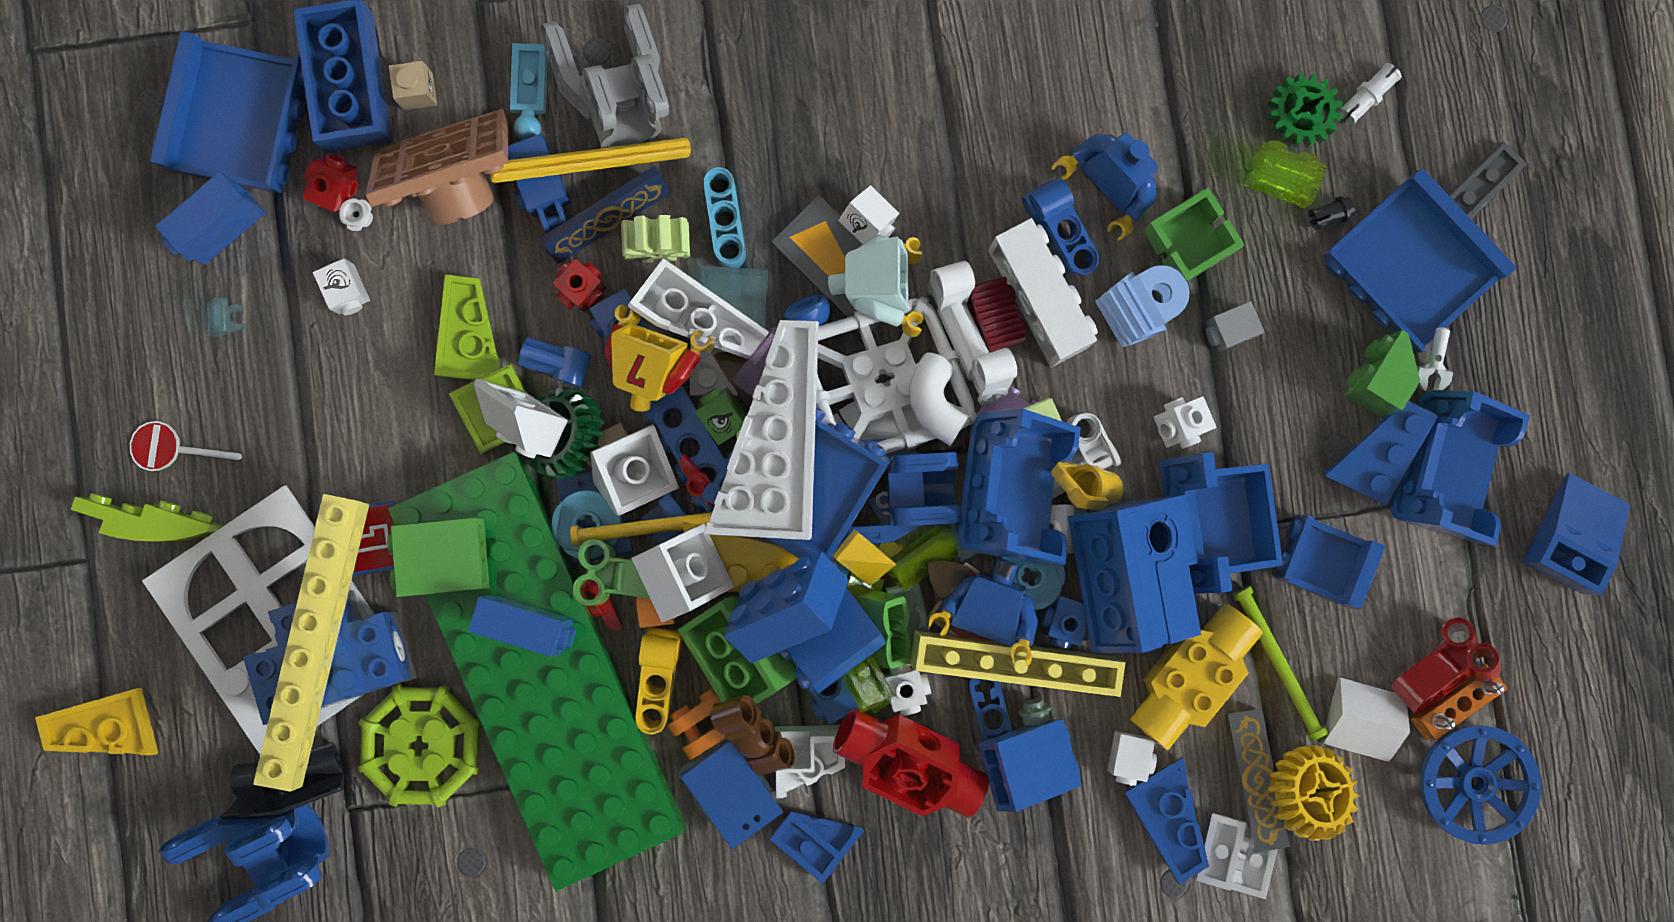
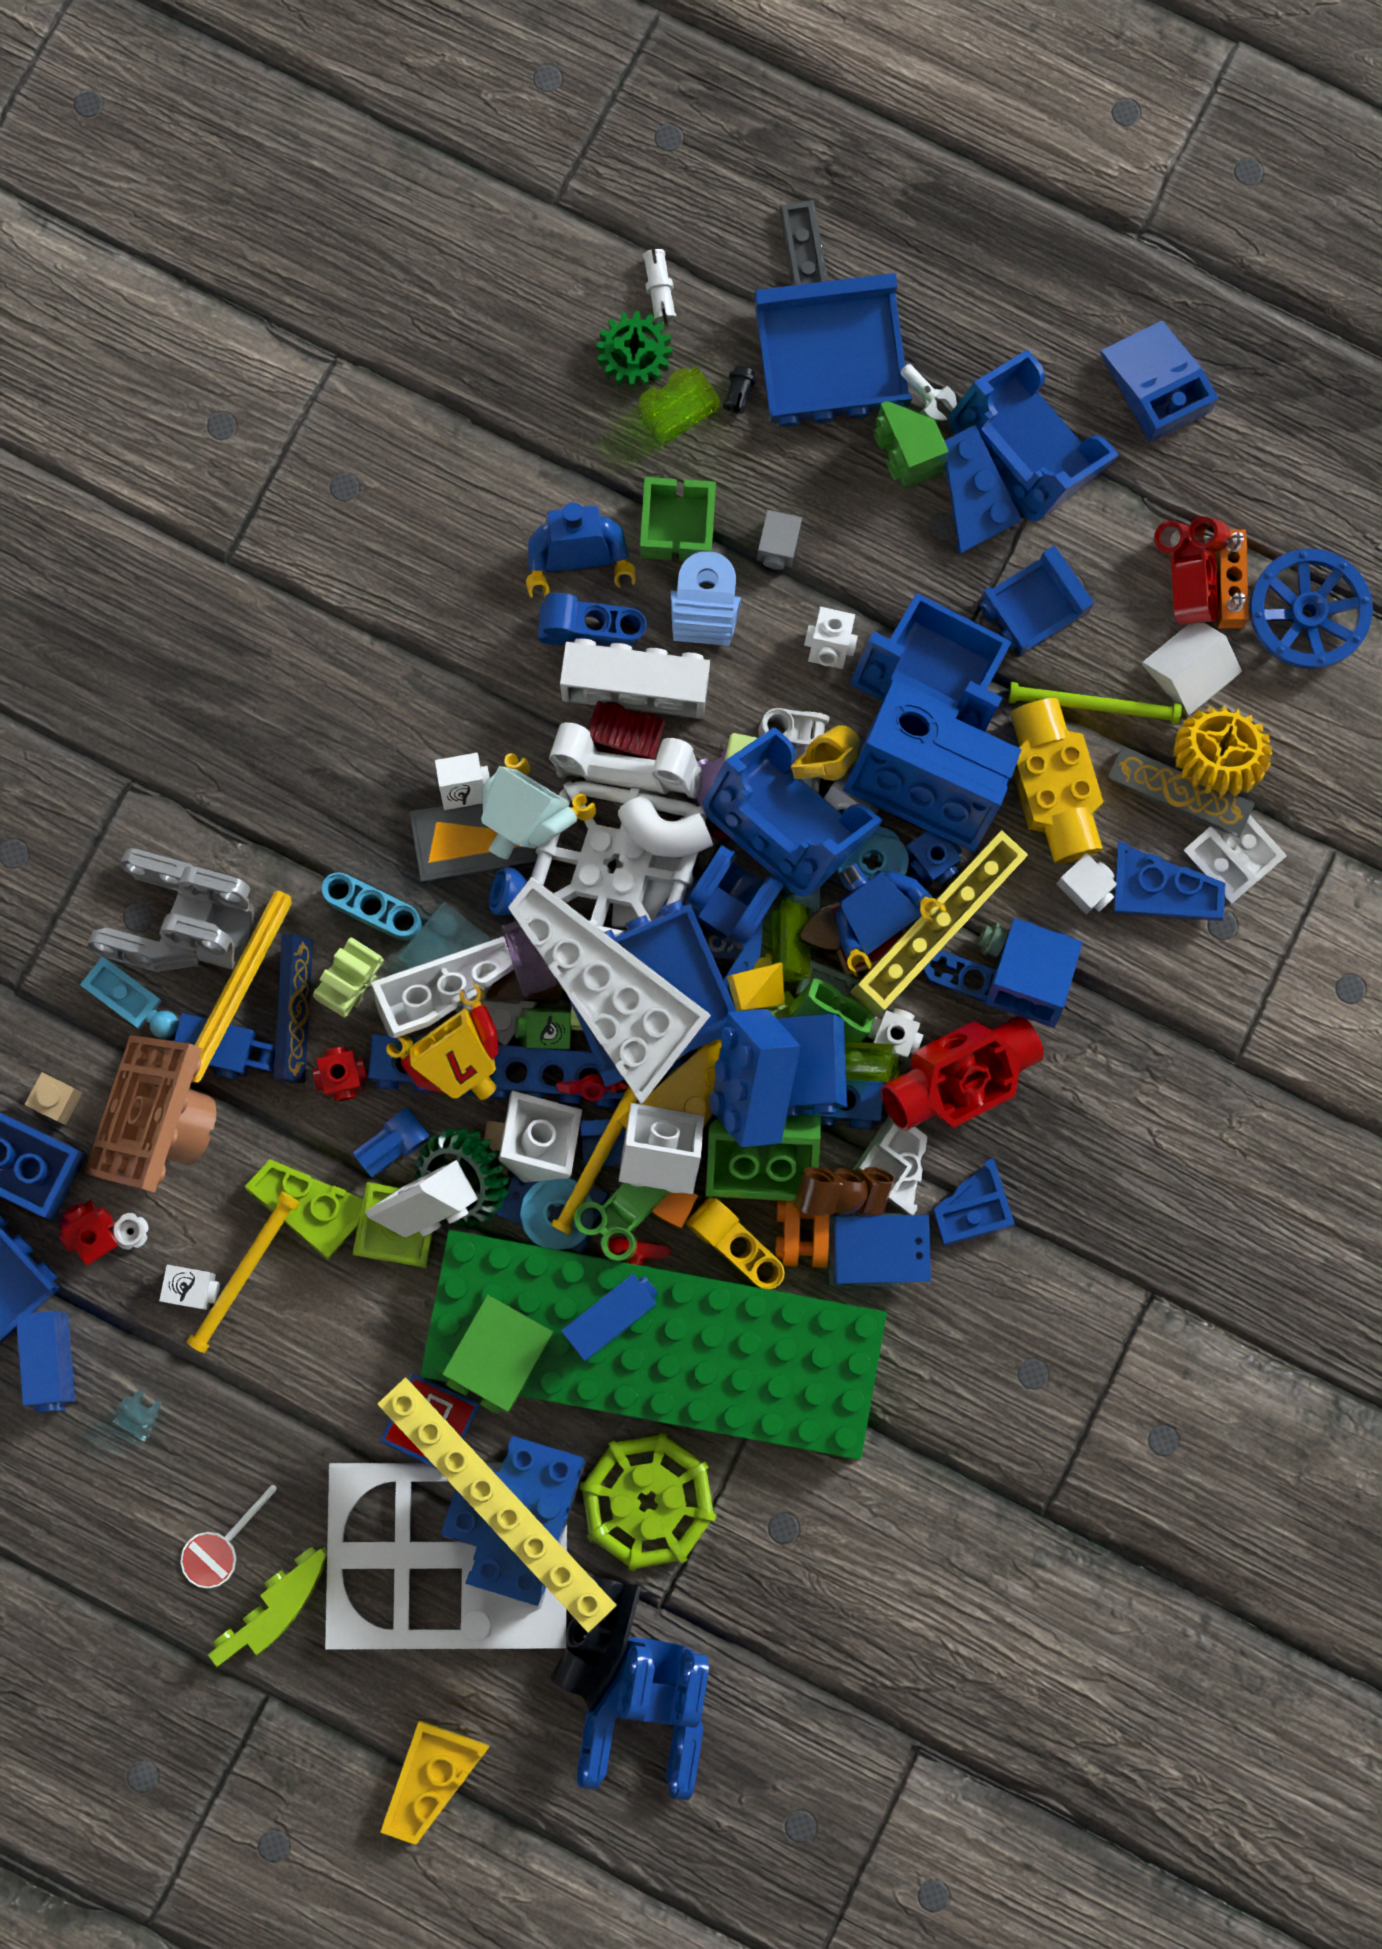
camera: 55 degrees left, 5 degrees down
(308, 324) = (242, 1273): none -> yellow bar

